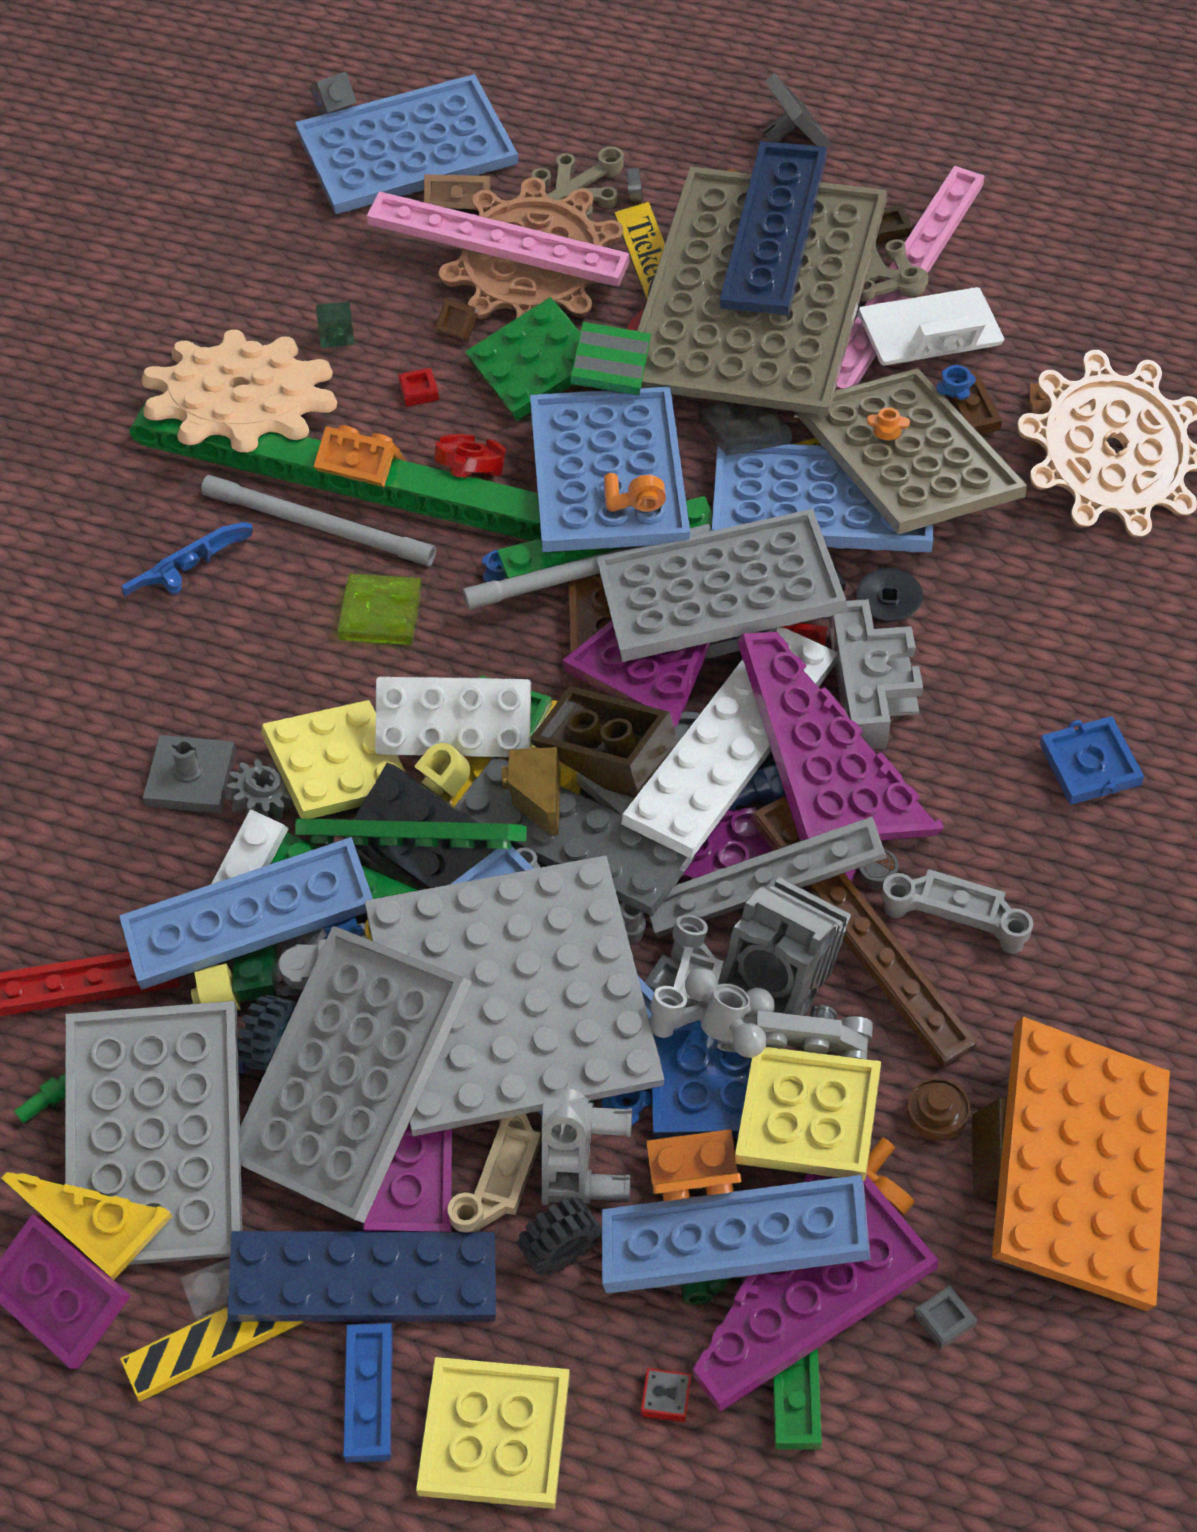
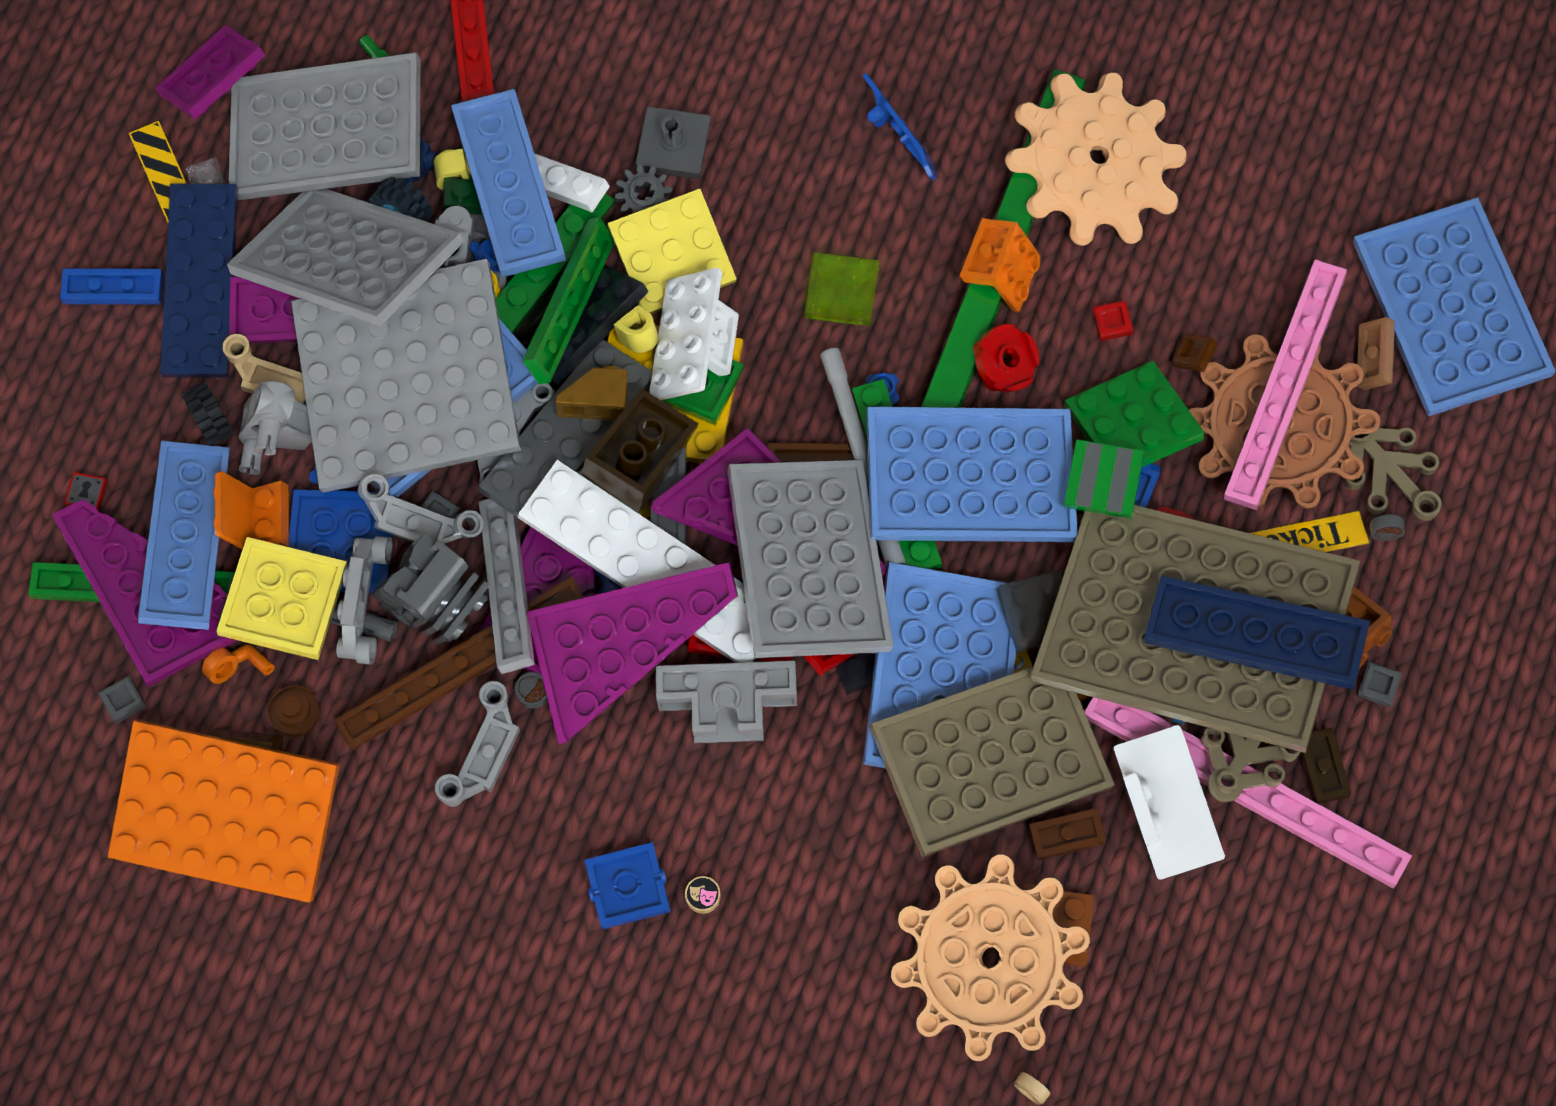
camera: 95 degrees right, 15 degrees up
(101, 1226) = (250, 94): yellow wing -> none
(332, 93) = (1516, 230): dark grey brick -> none
(335, 324) = (1187, 242): clear green plate -> none
(402, 546) = (911, 305): light grey piece -> none
(494, 1433) = (70, 371): light yellow plate -> none
(644, 493) = (908, 492): orange plate -> none
(727, 1009) = (377, 561): light grey piece -> none
(794, 116) = (1485, 693): dark grey tile -> none
(888, 424) = (1005, 737): orange plate -> none
(890, 585) = (824, 711): black piece -> none
(956, 382) = (1091, 811): blue plate -> none
(1086, 696) = (702, 894): none -> tile

